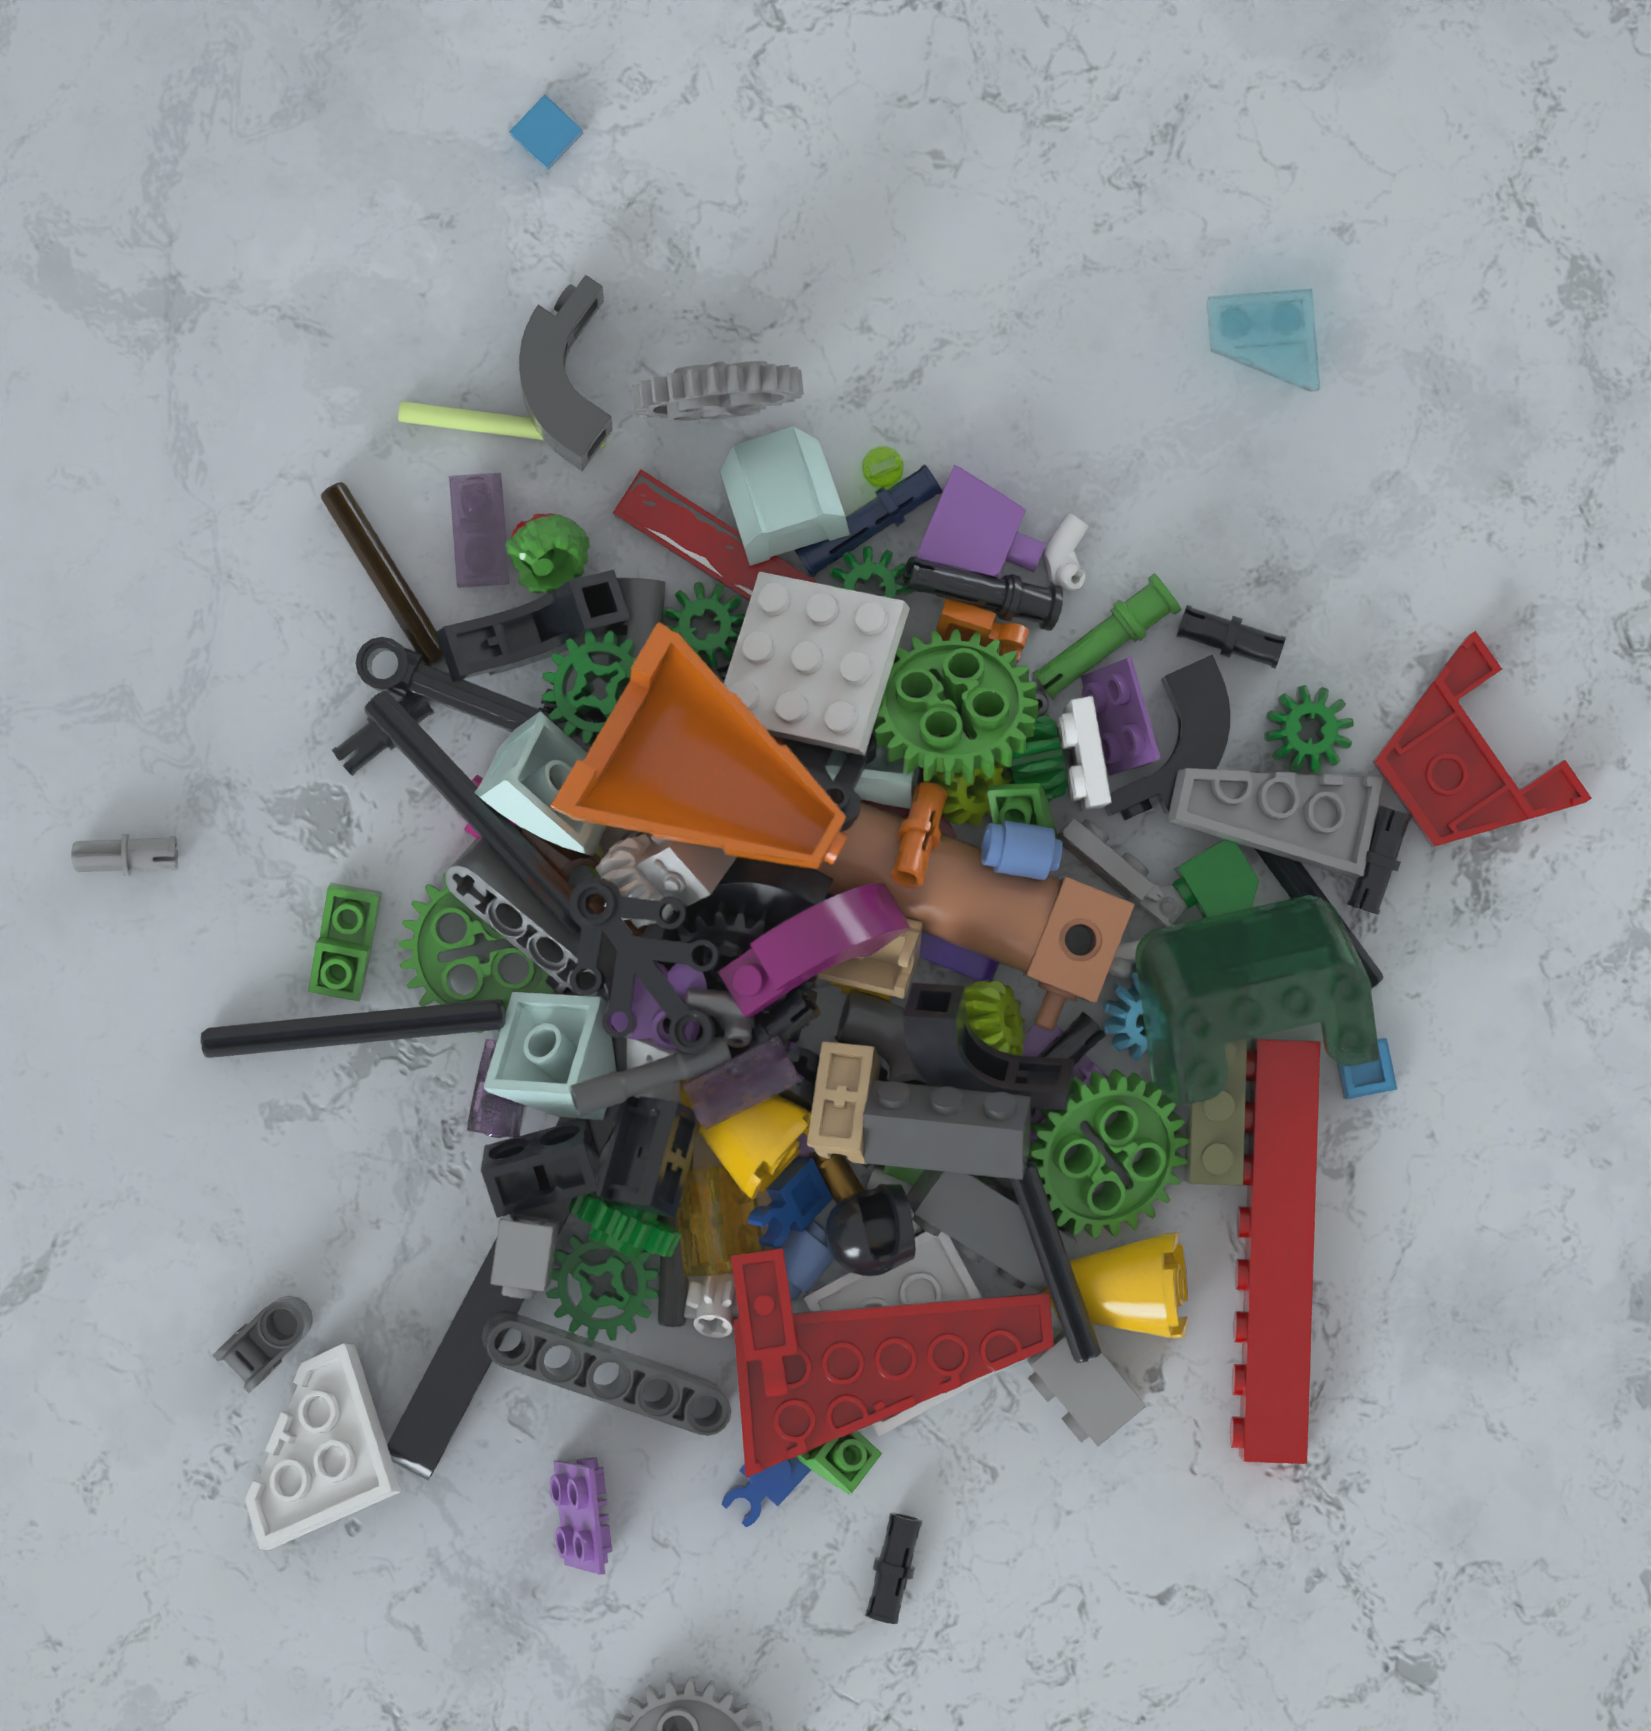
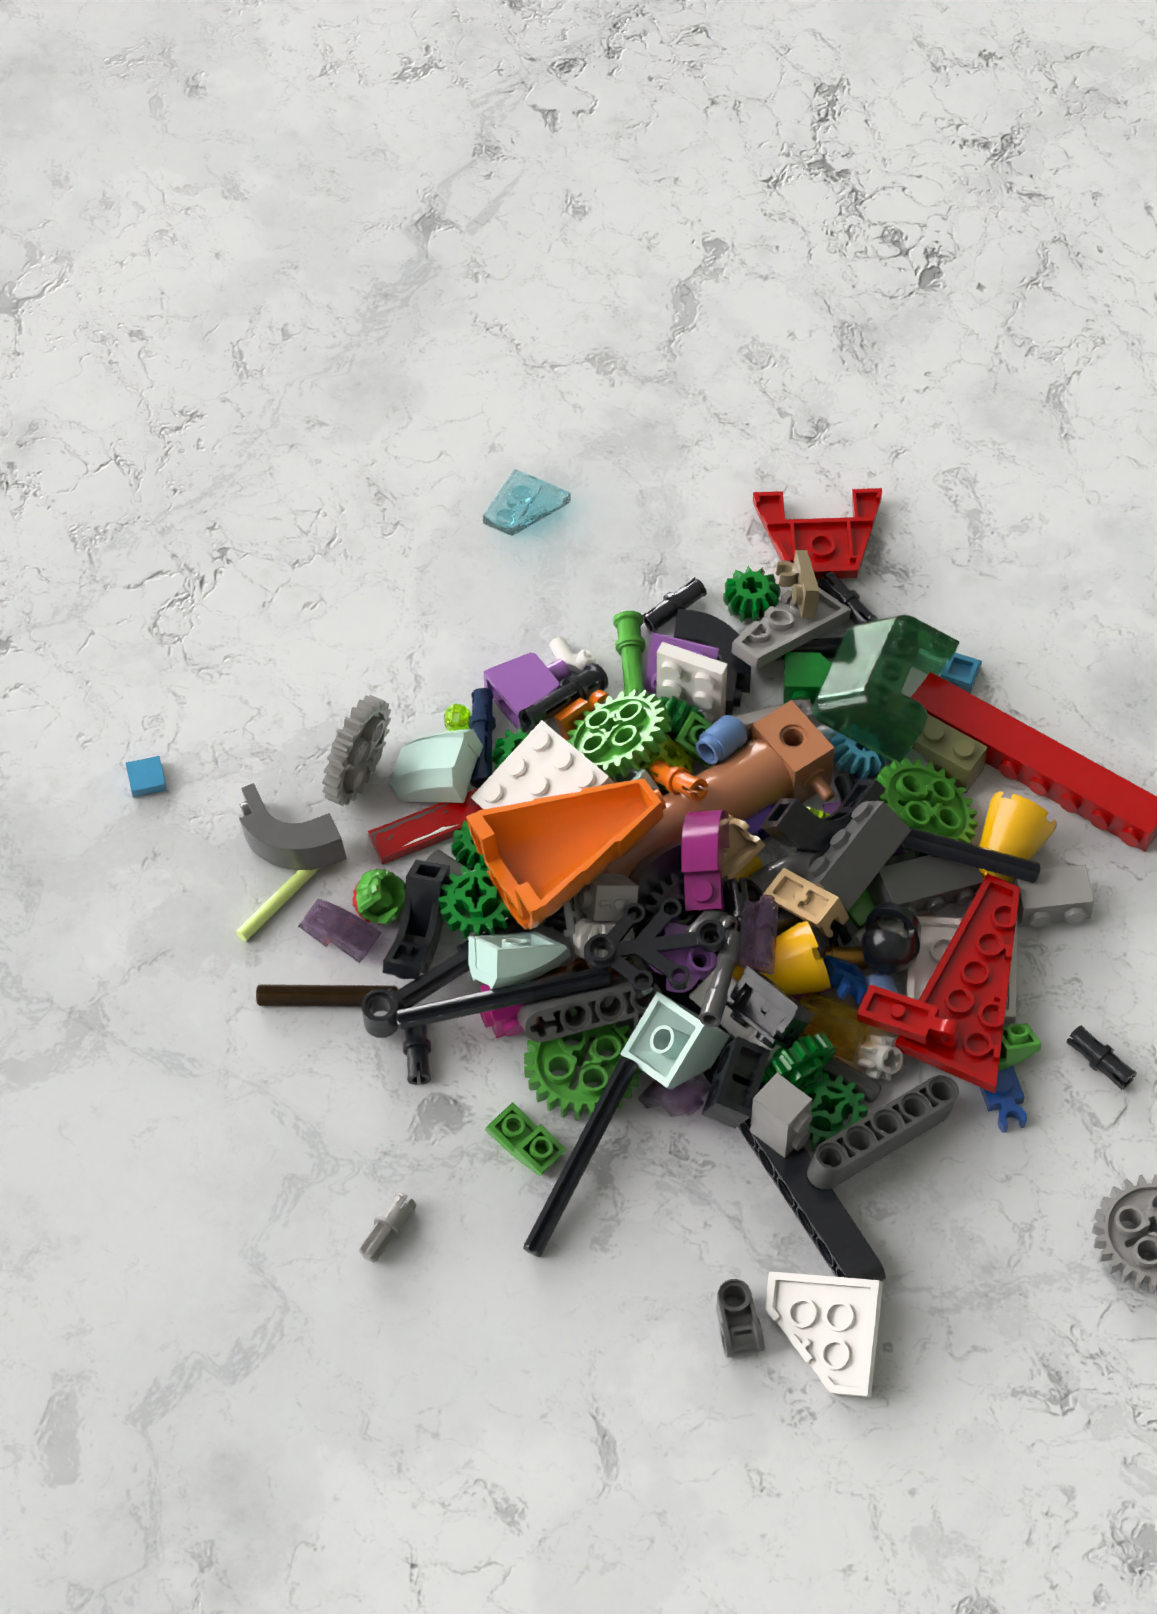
camera: 60 degrees left, 30 degrees down
(581, 1537) = (962, 1196): medium lavender hinge -> none
(1336, 809) = (804, 583): none -> dark tan plate

